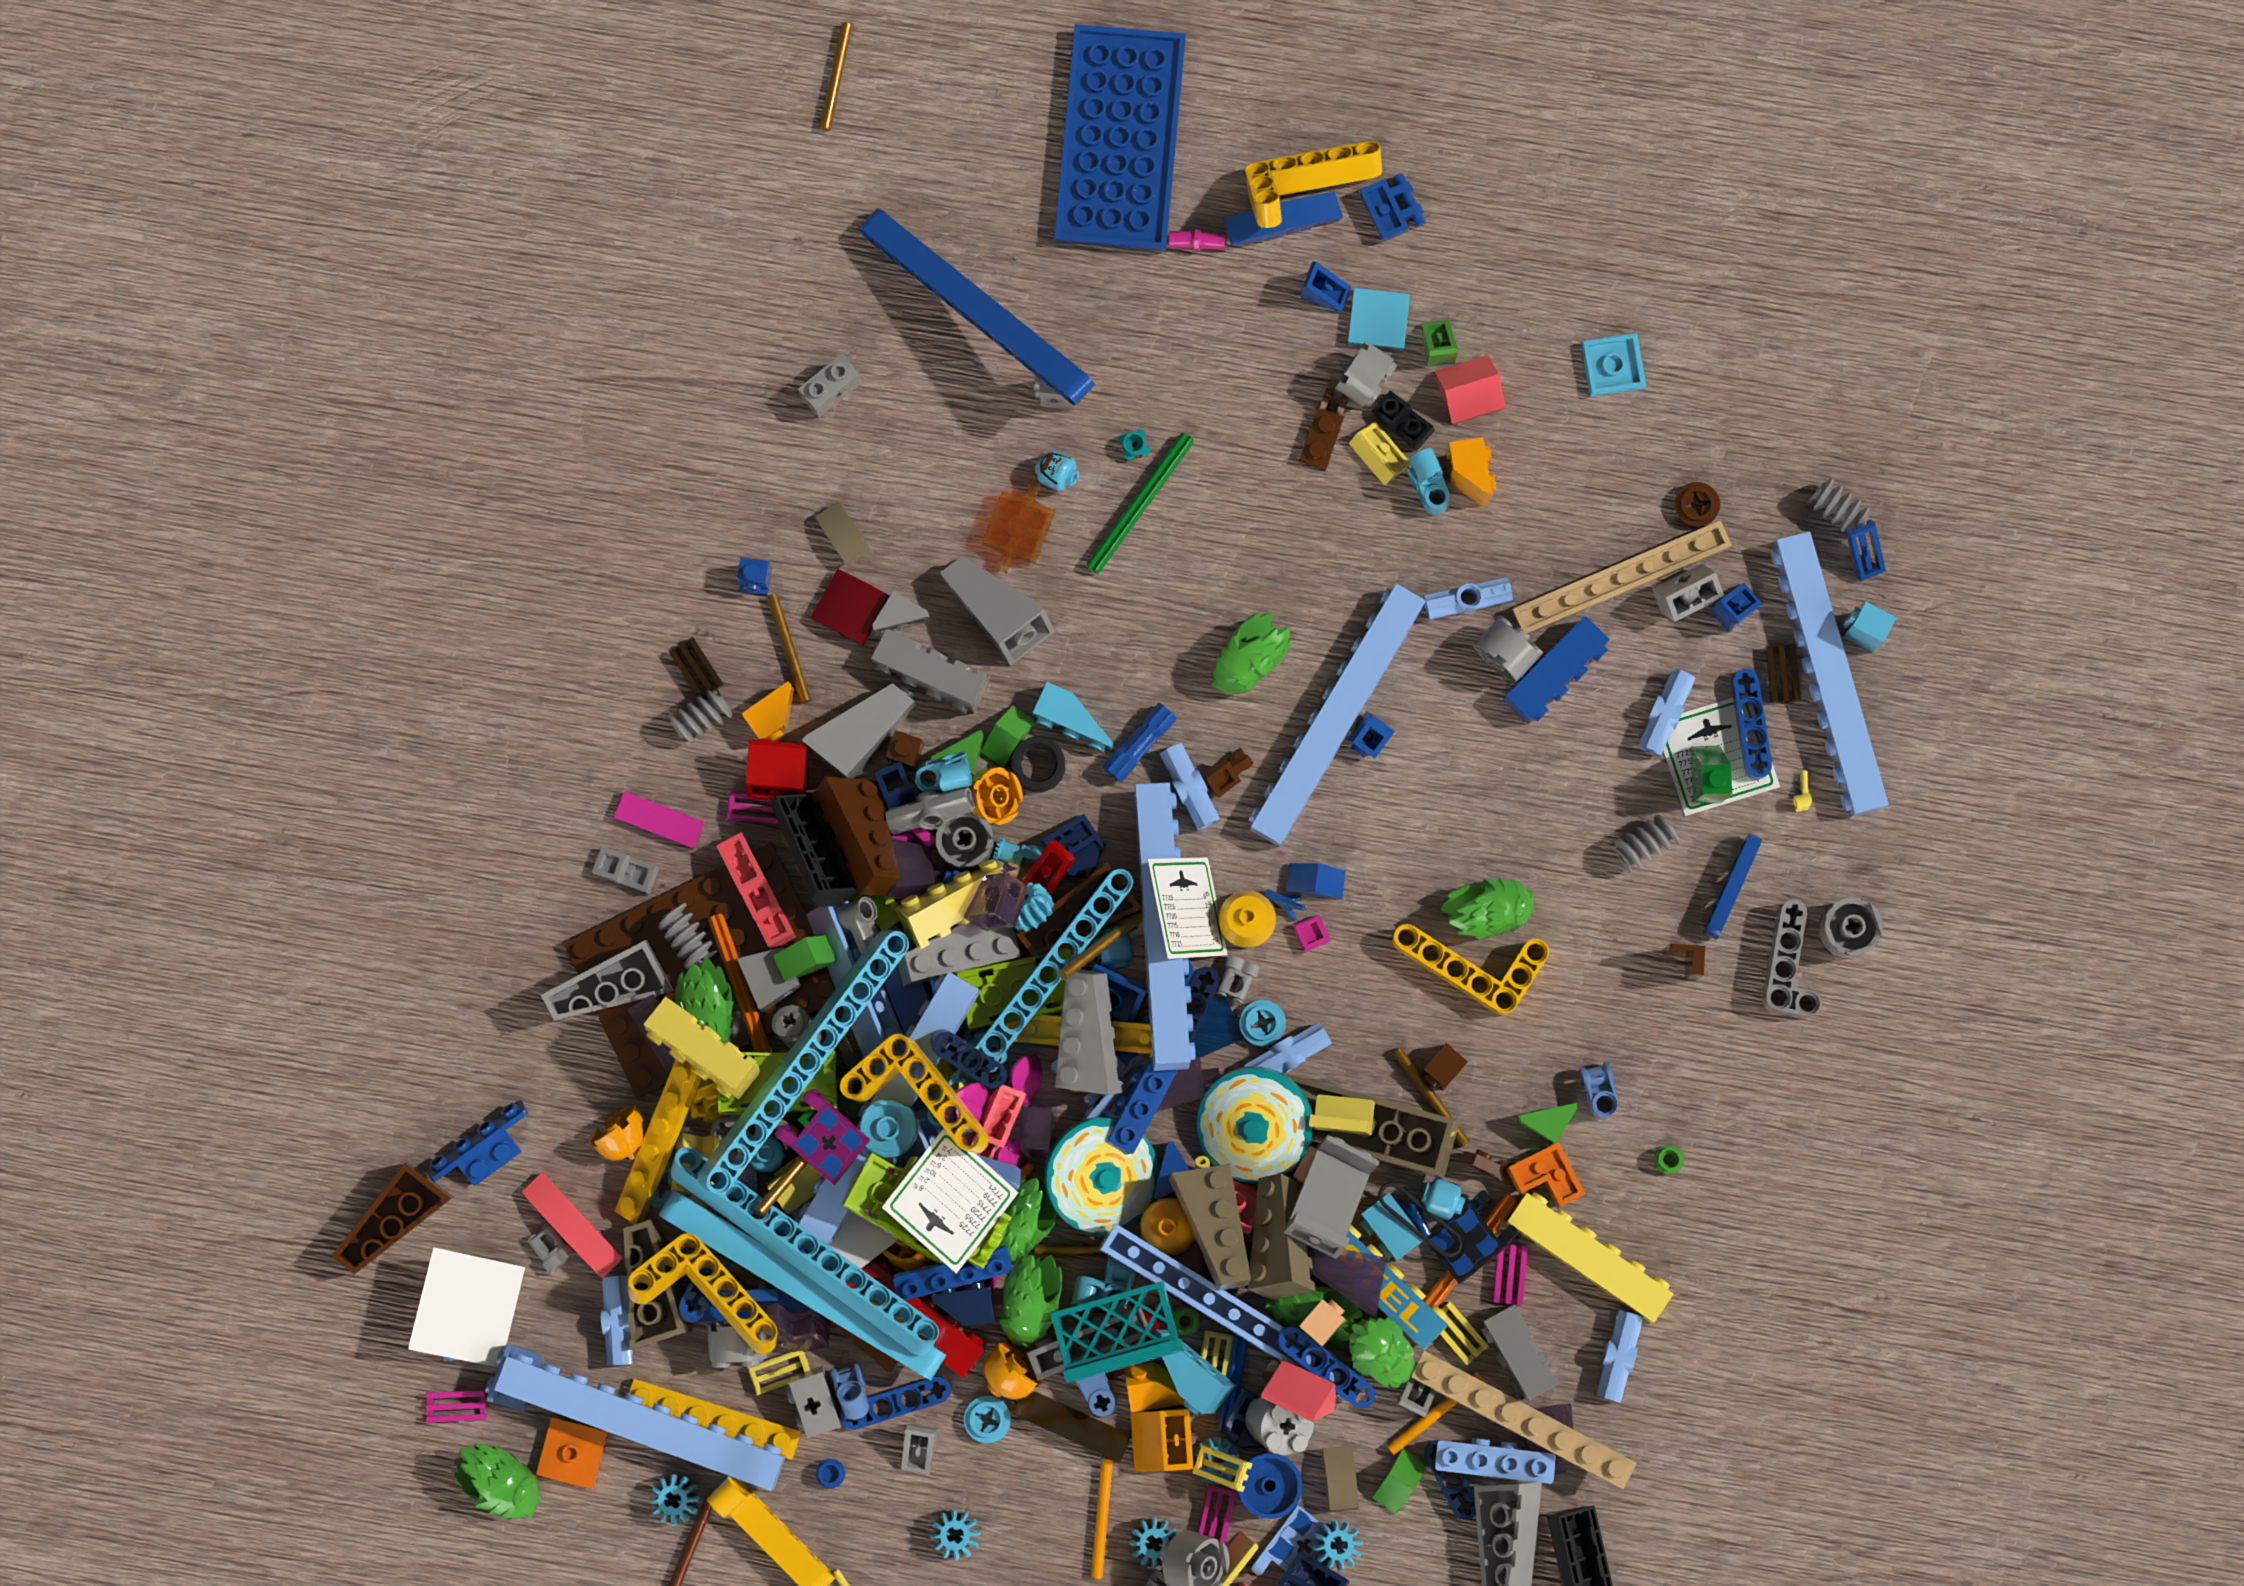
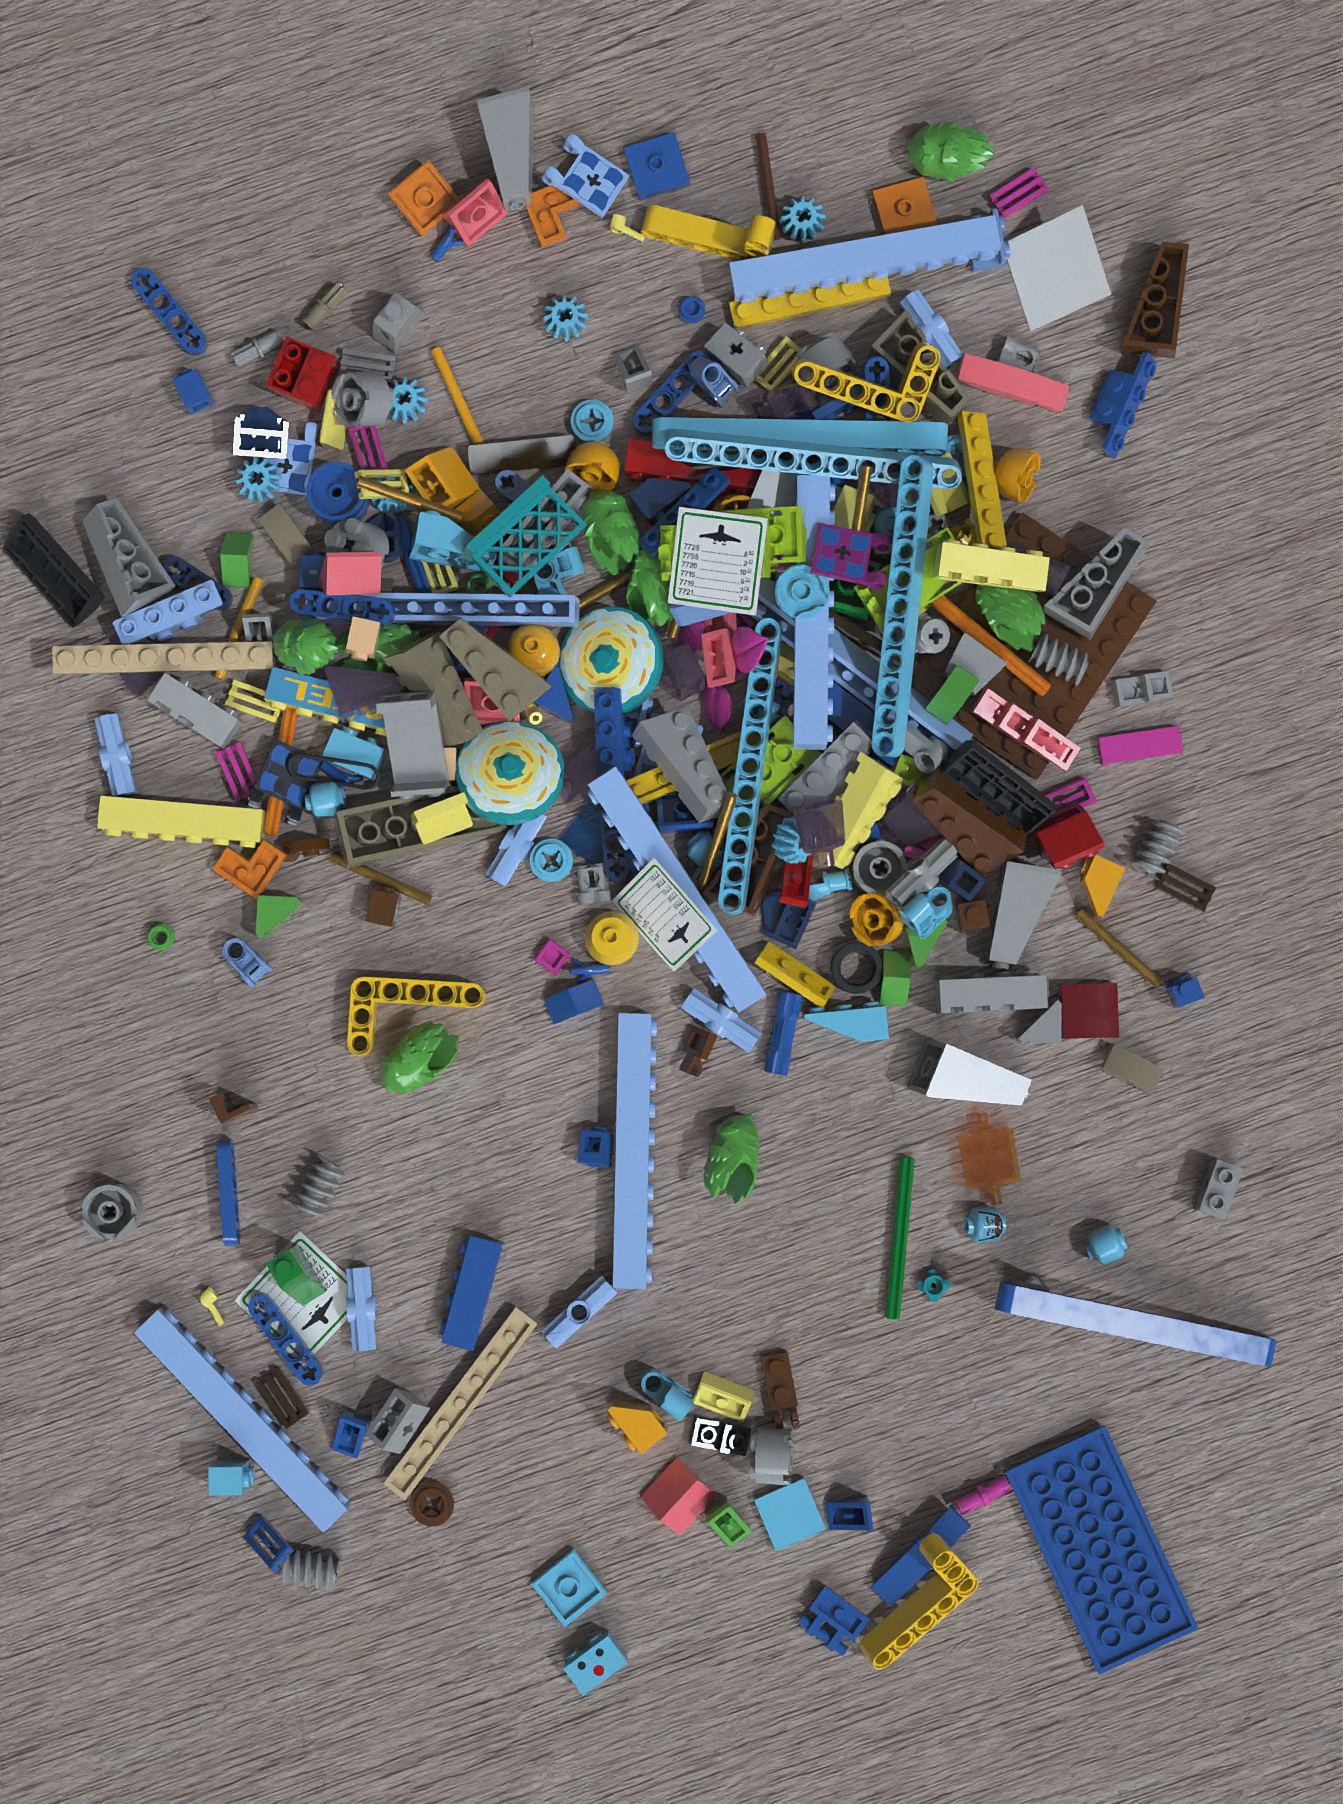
camera: 150 degrees right, 5 degrees up
(922, 1086) = (792, 635): yellow beam -> none
(958, 393) = (1106, 1244): none -> medium azure head
(990, 1063) = (788, 676): dark blue beam -> none
(1097, 789) = (795, 974): none -> yellow plate
(1204, 1435) = (408, 498): none -> pearl gold bar
(1333, 1426) = (310, 570): none -> blue brick
(1507, 649) = (521, 1285): light grey brick -> none
(1626, 287) = (595, 1662): none -> medium azure brick
(1790, 958) = (148, 1160): light grey beam -> none

